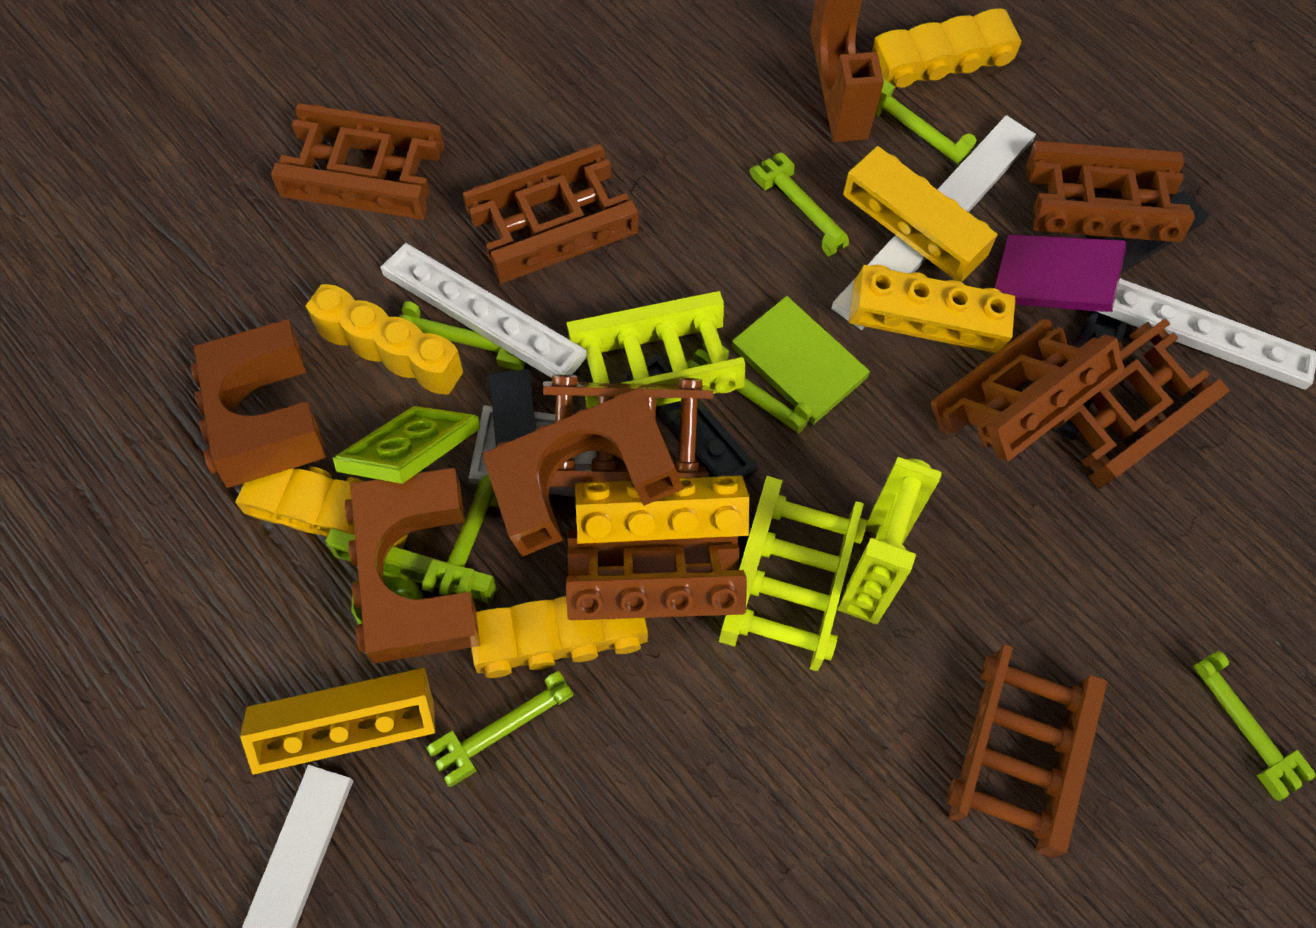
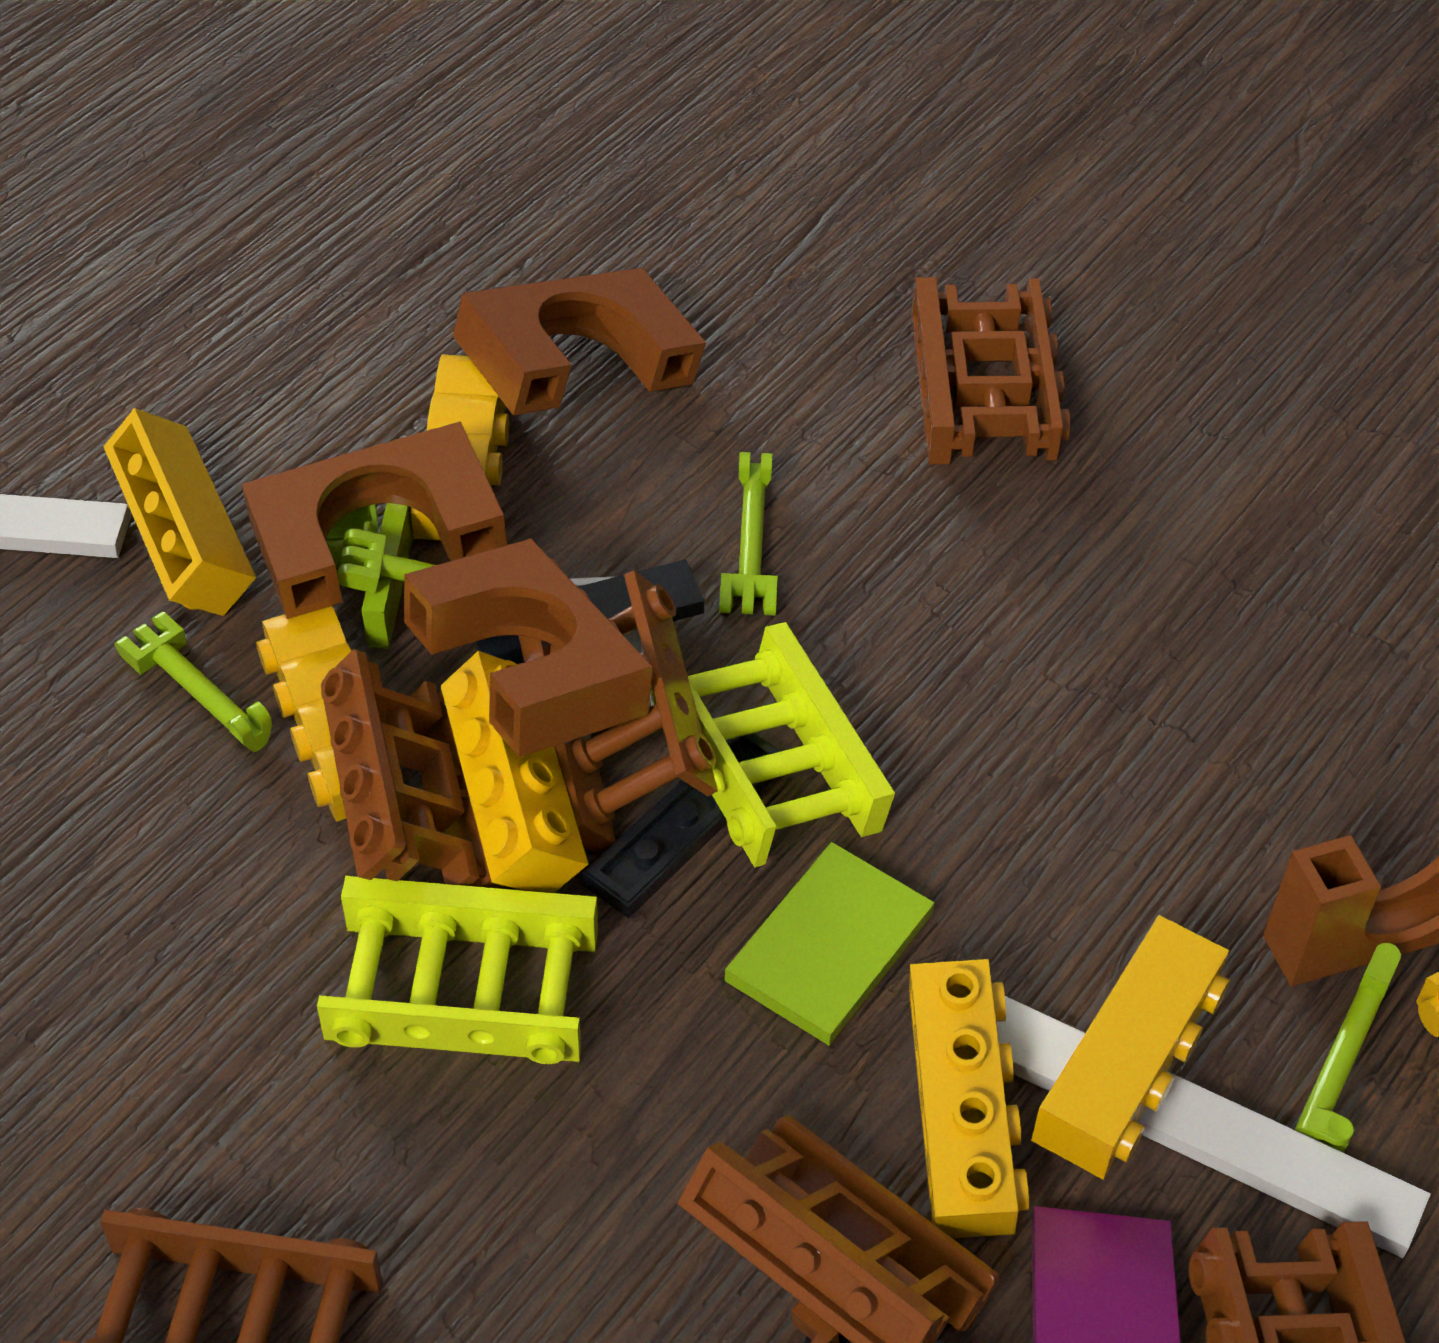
camera: 80 degrees right, 15 degrees down
(385, 339) = (710, 450): yellow brick -> none
(406, 444) = (547, 484): lime tile -> none
(483, 312) = (784, 546): white tile -> none
(559, 237) = (951, 616): dark orange fence -> none
(779, 173) = (1157, 866): lime hinge -> none
(794, 419) = (720, 943): lime hinge -> none
(885, 560) = (430, 1041): neon yellow fence -> none

